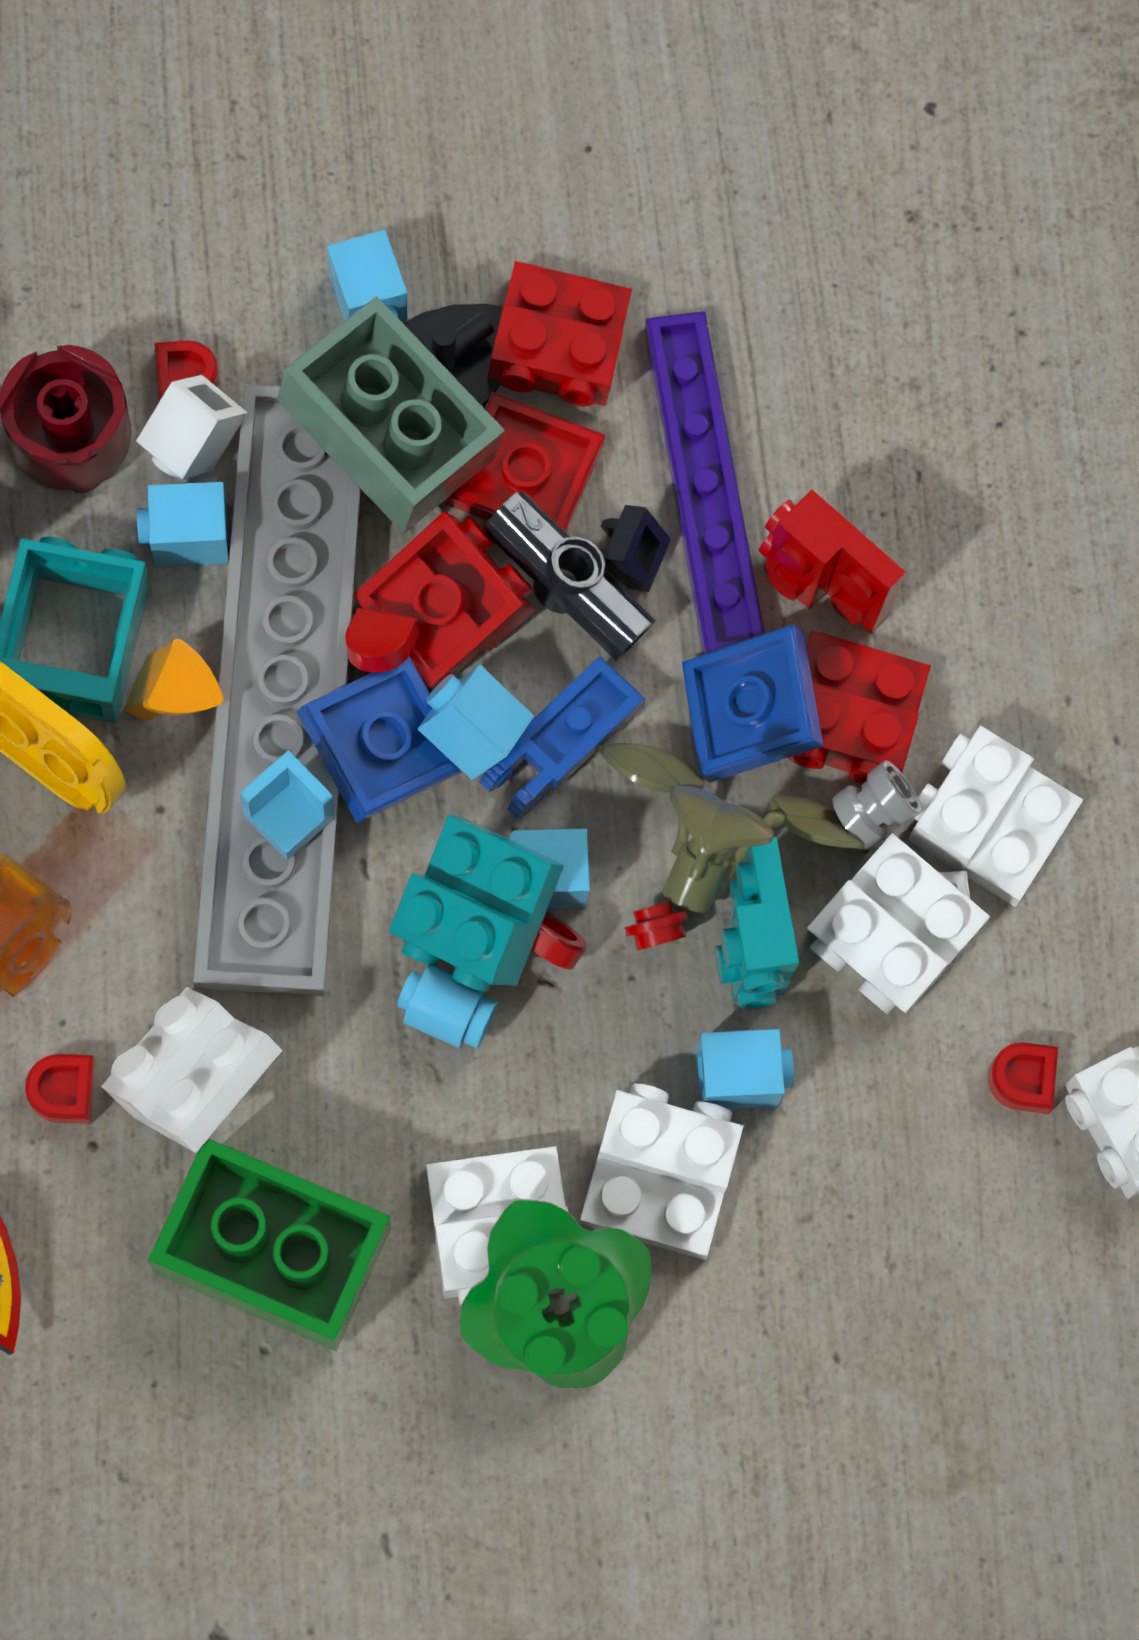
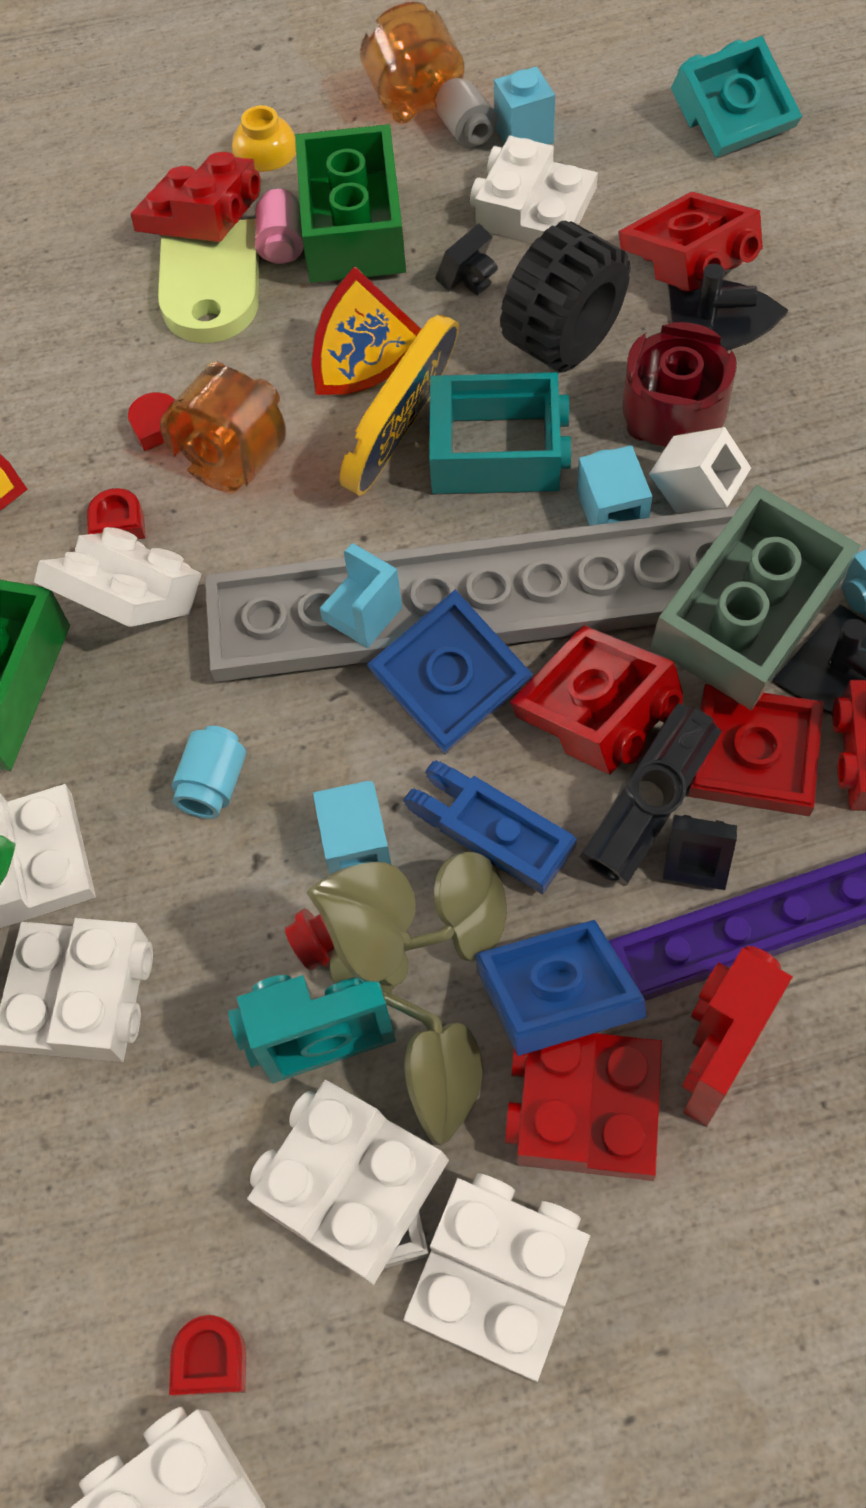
camera: 95 degrees right, 10 degrees down
(173, 683) = (459, 504): light orange tile -> none
(183, 360) = (767, 469): red tile -> none
(380, 640) = (538, 644): red tile -> none
(474, 721) = (479, 733): medium azure brick -> none
(476, 905) = (294, 765): teal plate -> none
(558, 943) = (284, 845): red tile -> none
(743, 1068) = (175, 1044): medium azure brick -> none
(880, 802) = (471, 1130): light grey wheel -> none

